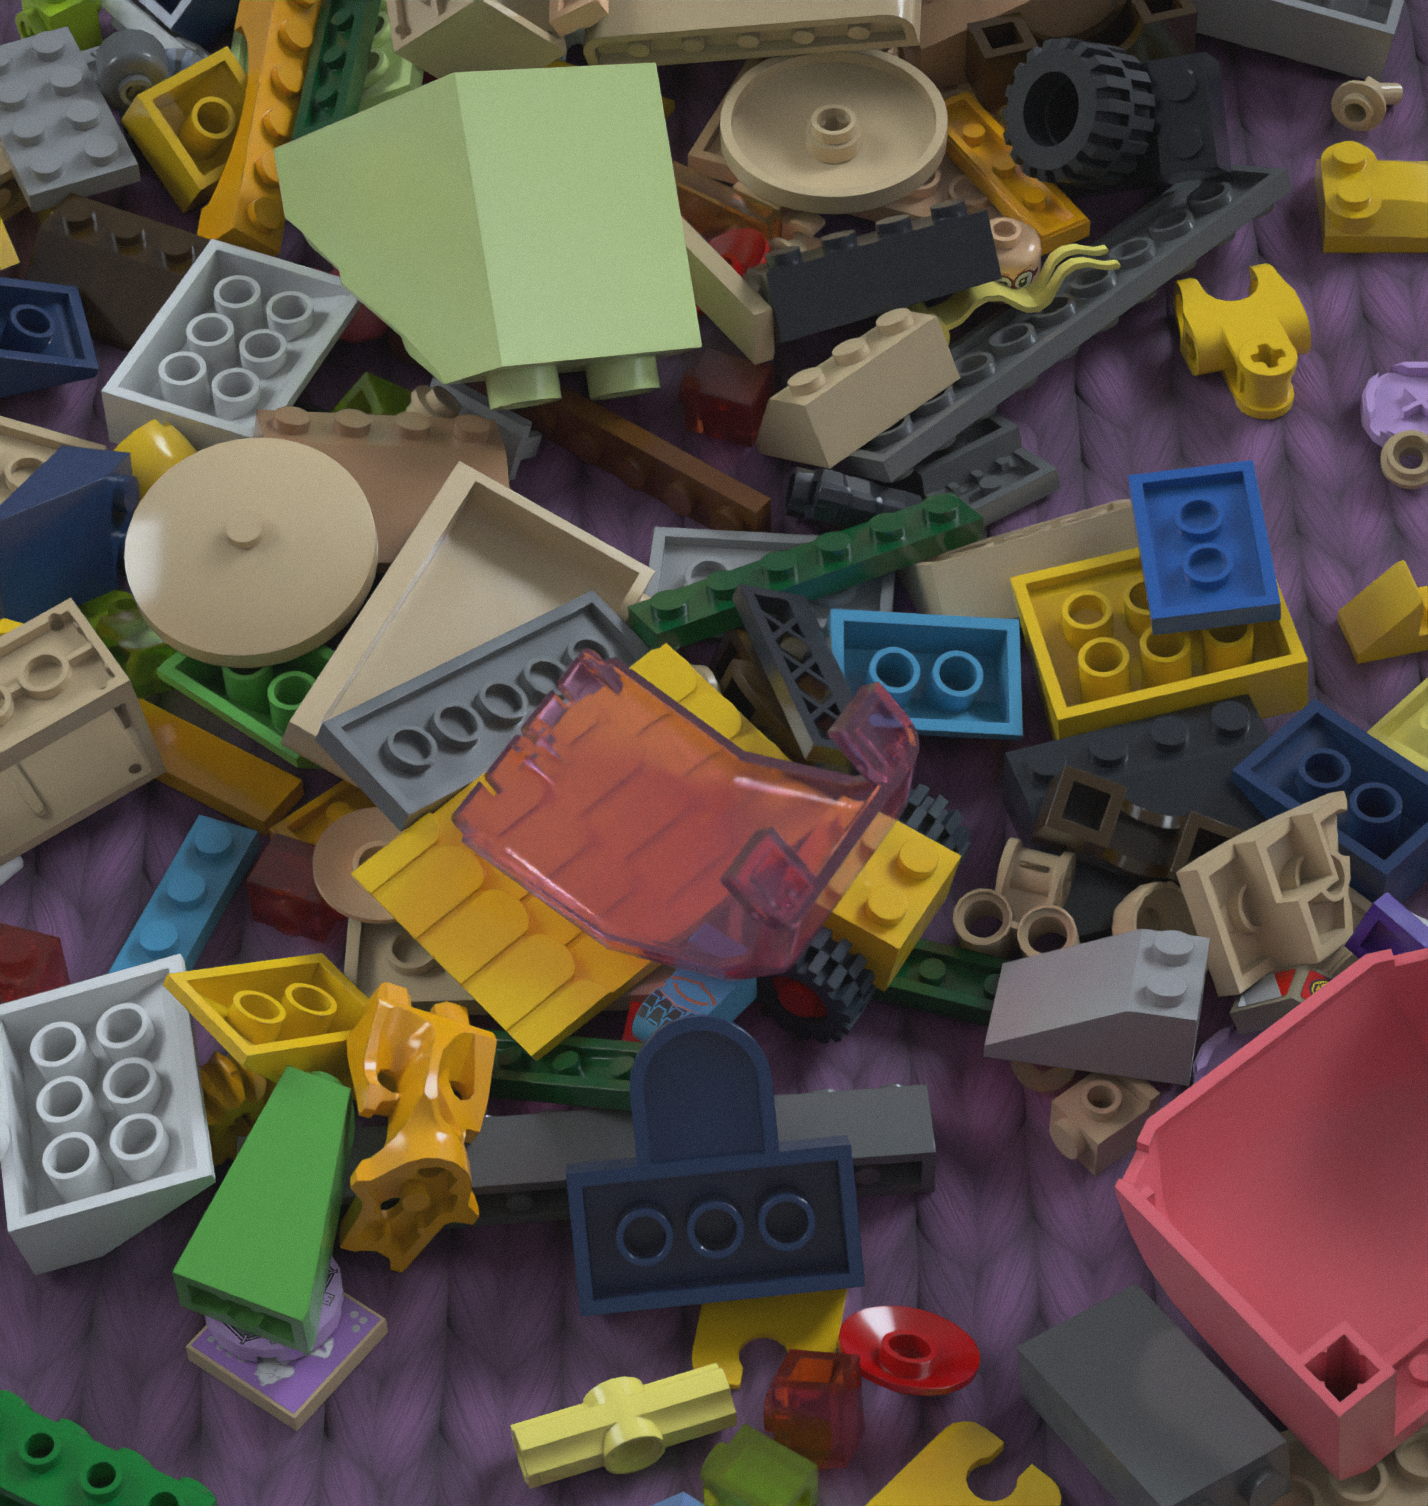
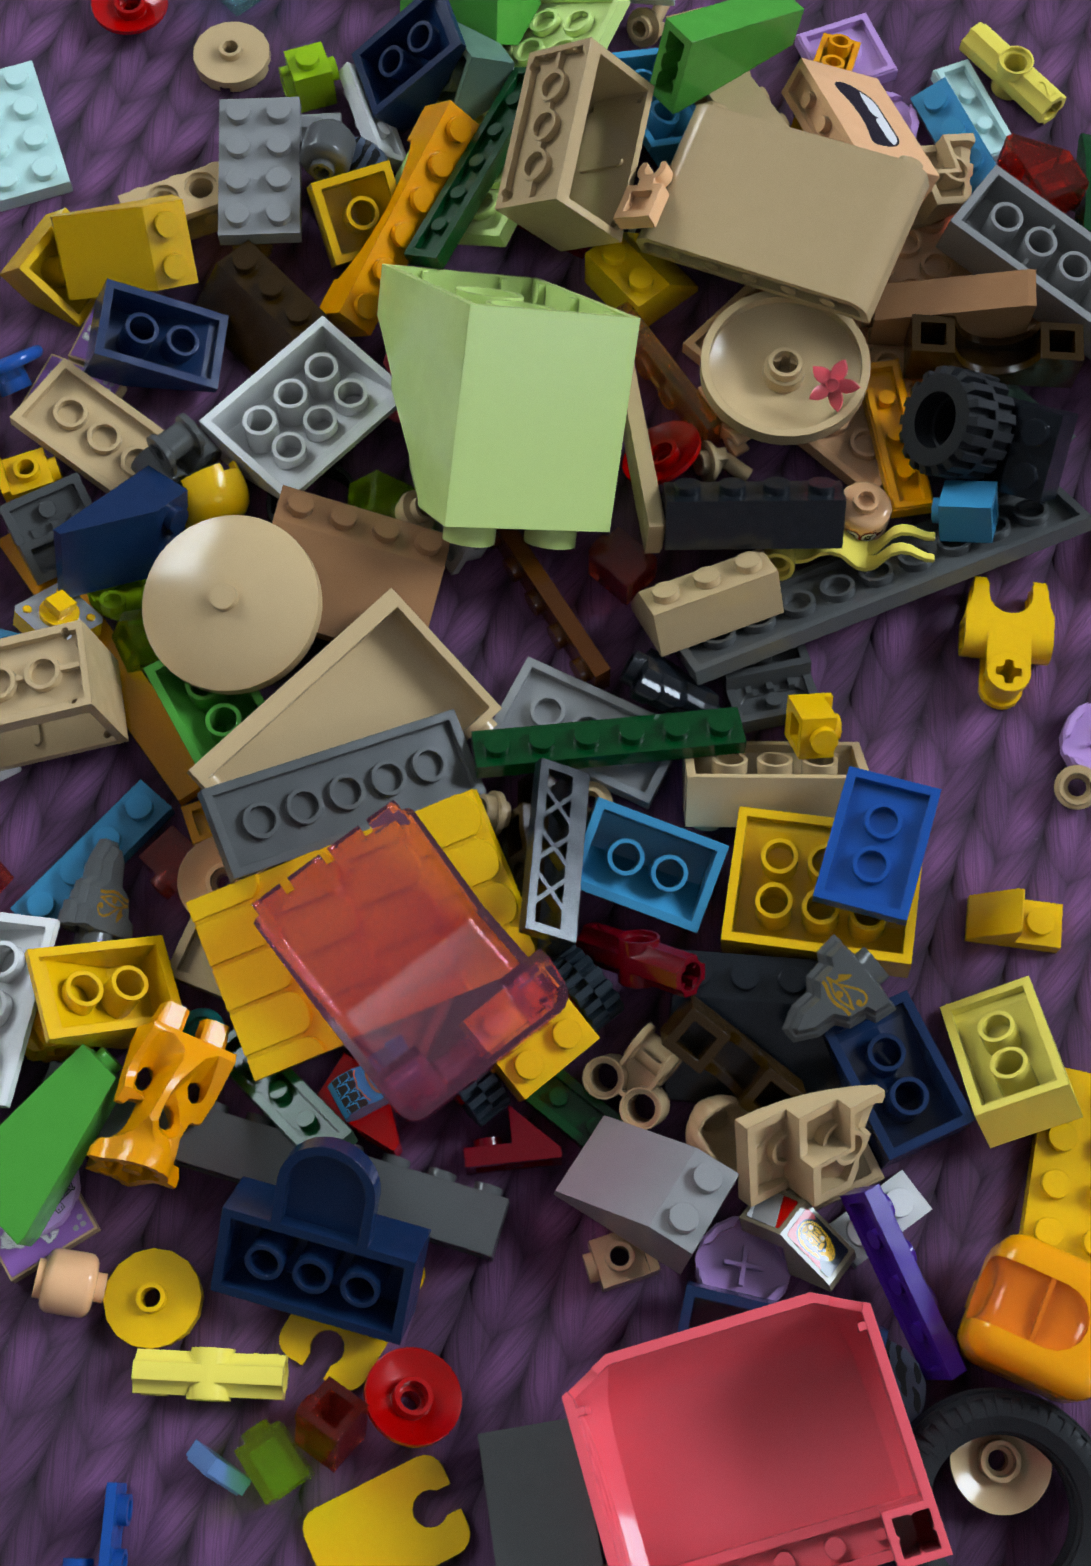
camera: 20 degrees right, 20 degrees up
(89, 418) = (178, 450): none -> dark grey piece
(210, 925) = (98, 903): none -> dark grey rock
(378, 1387) = (69, 1282): none -> light nougat head
(488, 1403) = (178, 1304): none -> yellow plate
(907, 117) = (833, 384): none -> coral plant
(912, 1043) = (528, 1149): none -> dark red slope
(981, 768) = (641, 959): none -> dark red piece
(1066, 482) = (812, 725): none -> yellow brick
(1132, 209) = (966, 511): none -> dark azure brick
(1236, 712) = (839, 992): none -> dark grey rock

